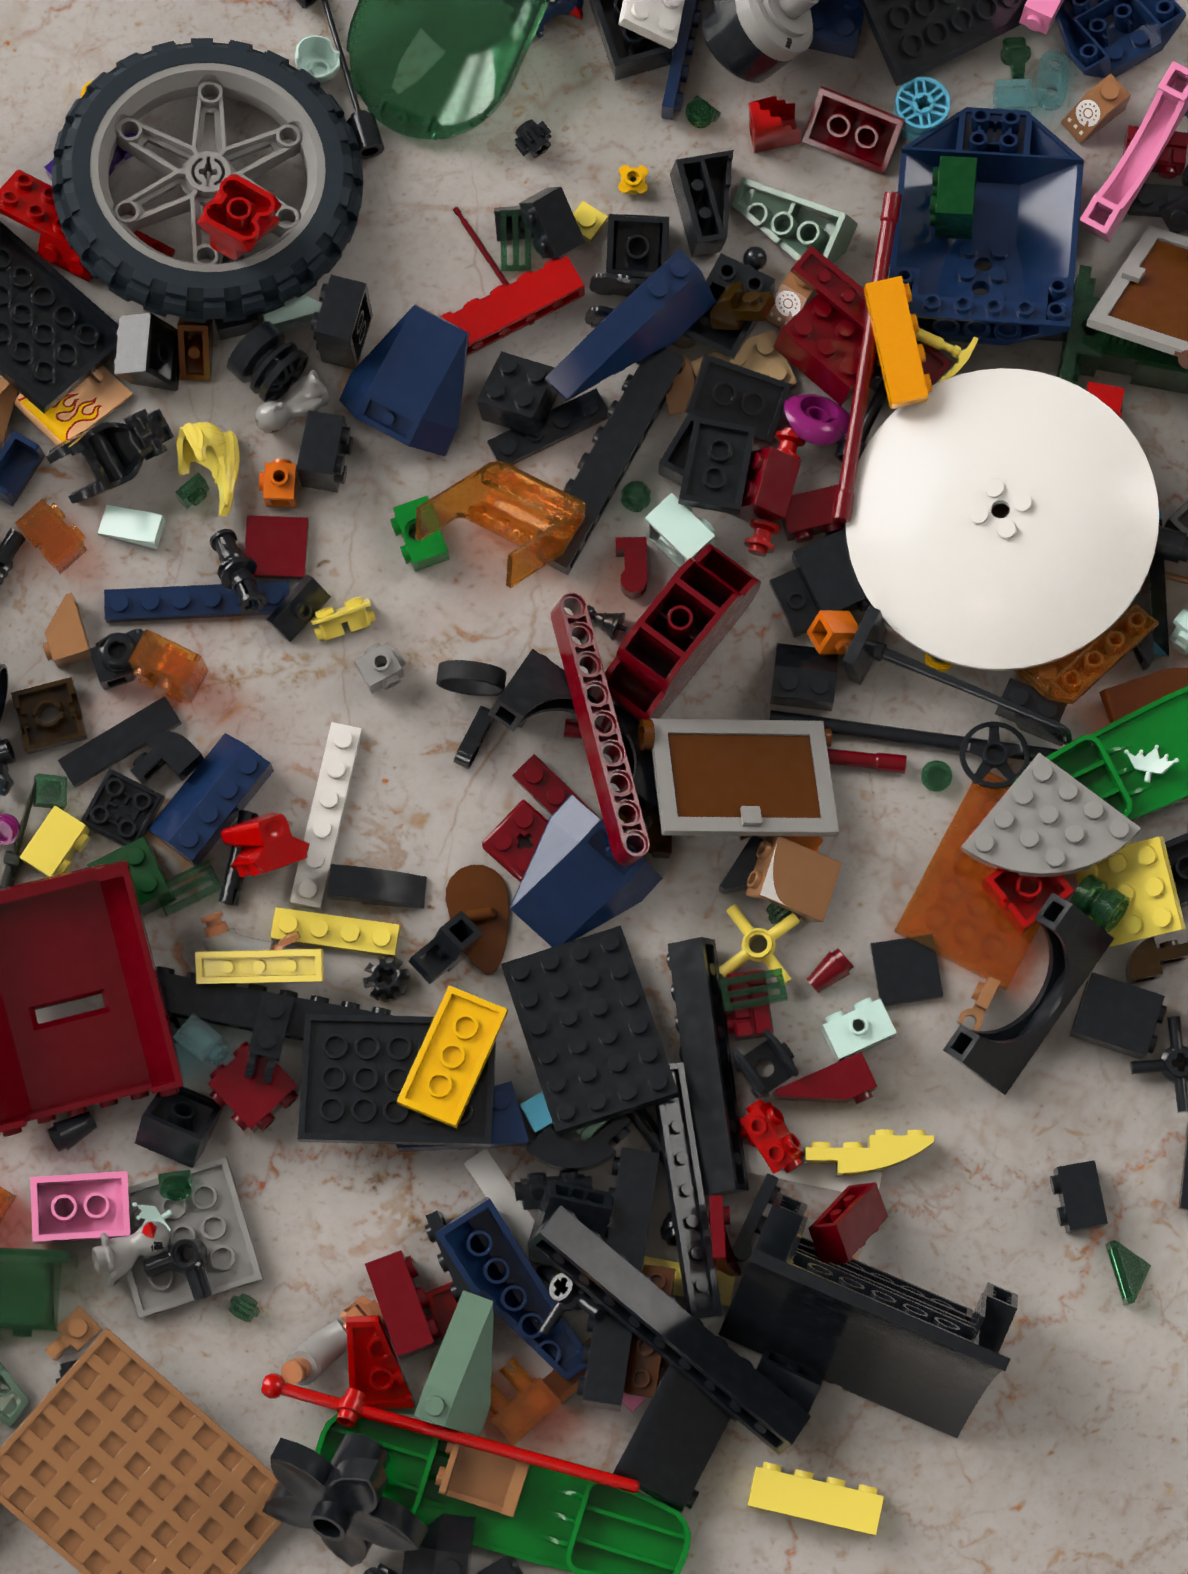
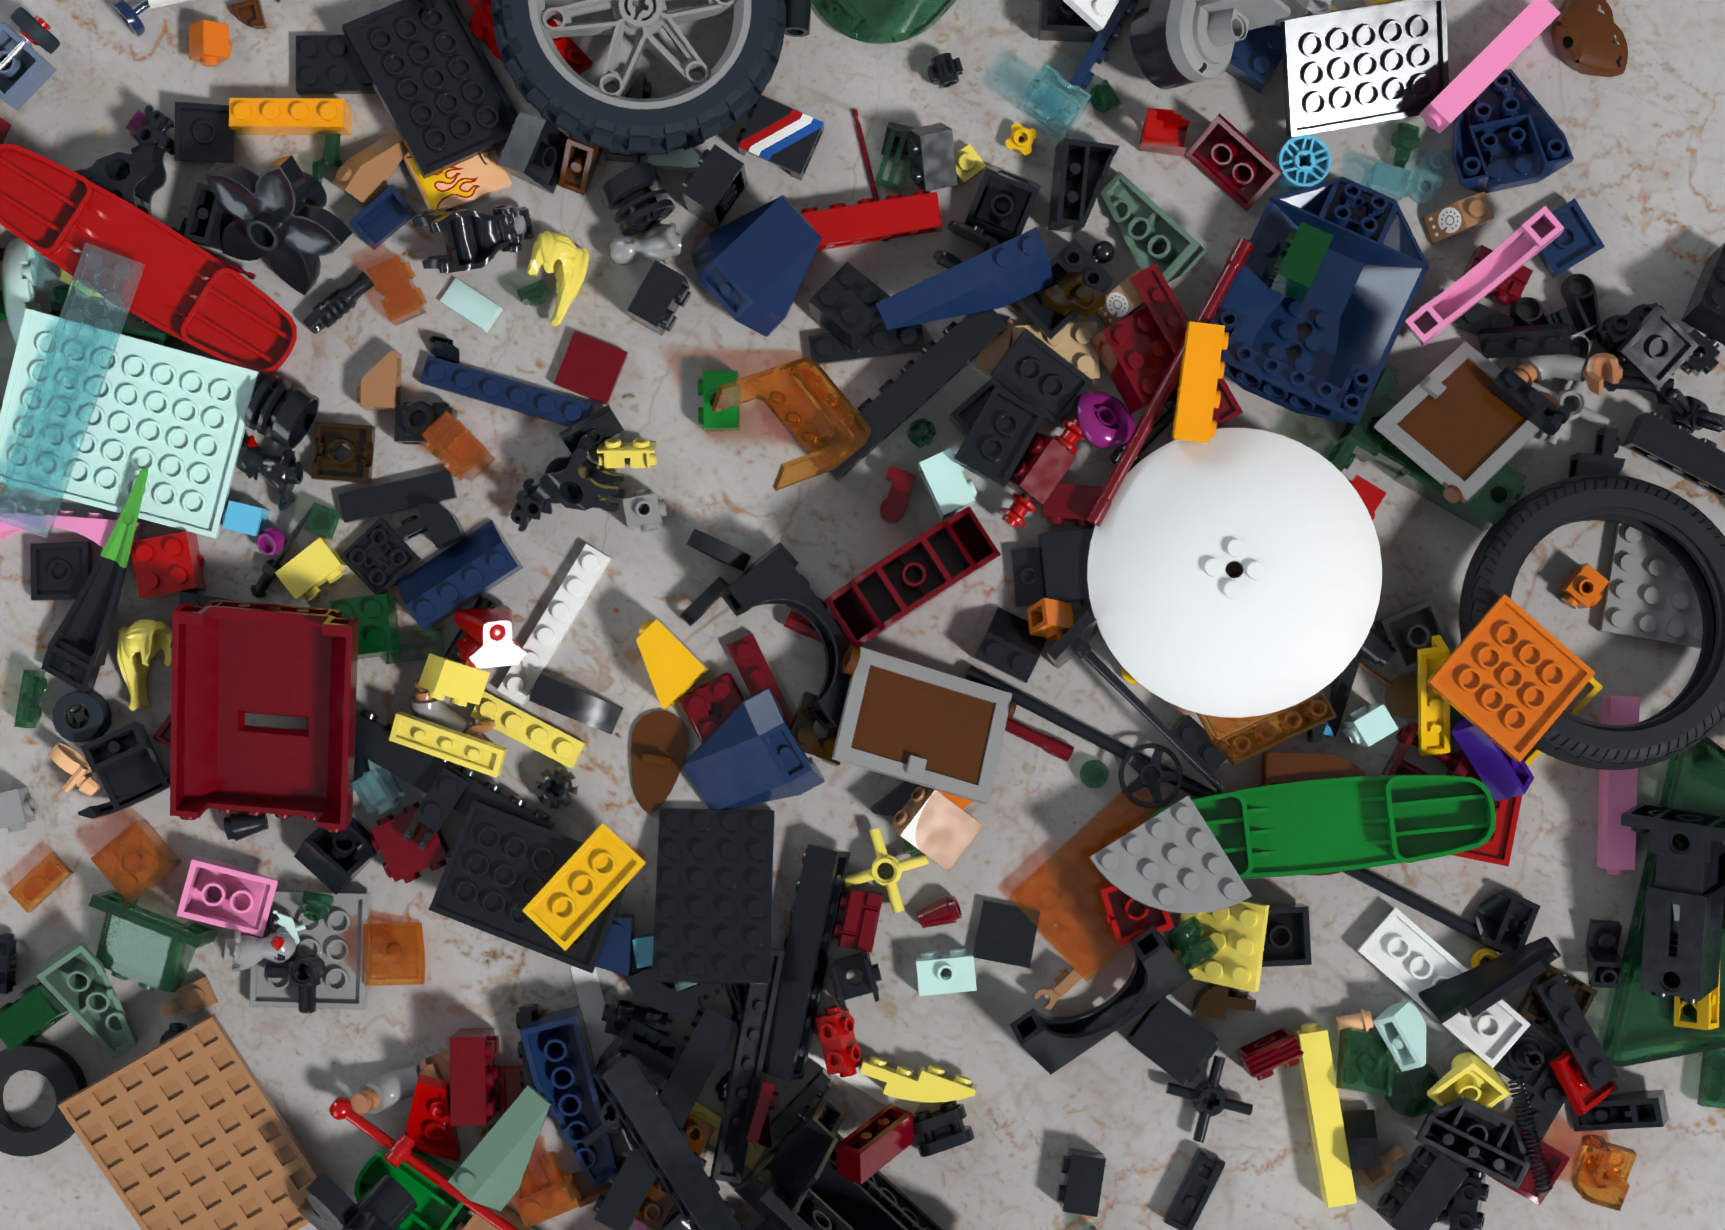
camera: 15 degrees right, 10 degrees up
(119, 578) = (442, 347): none -> black piece
(237, 571) = (547, 381): black piece -> none
(239, 216) = (649, 62): red piece -> none
(242, 901) = (453, 679): none -> light yellow brick
(244, 1307) = (341, 1028): clear green plate -> none
(273, 1209) = (393, 954): none -> clear orange slope
(279, 483) = (612, 312): orange brick -> none
(293, 661) = (571, 482): none -> black animal
(391, 254) = (780, 136): none -> panel
(447, 948) = (615, 780): black brick -> none
(460, 807) = (669, 662): none -> yellow slope
(595, 742) = (802, 653): dark red beam -> none
(609, 622) = (858, 538): black piece -> none
(652, 130) = (1054, 101): none -> clear light blue piece
(723, 983) = (867, 900): clear green tile -> none
(837, 1083) = (908, 1012): dark red slope -> none
(915, 1173) = (926, 1122): none -> black brick
(939, 343) = (1249, 404): light yellow piece -> none
(1151, 762) = (1283, 834): light aqua piece -> none

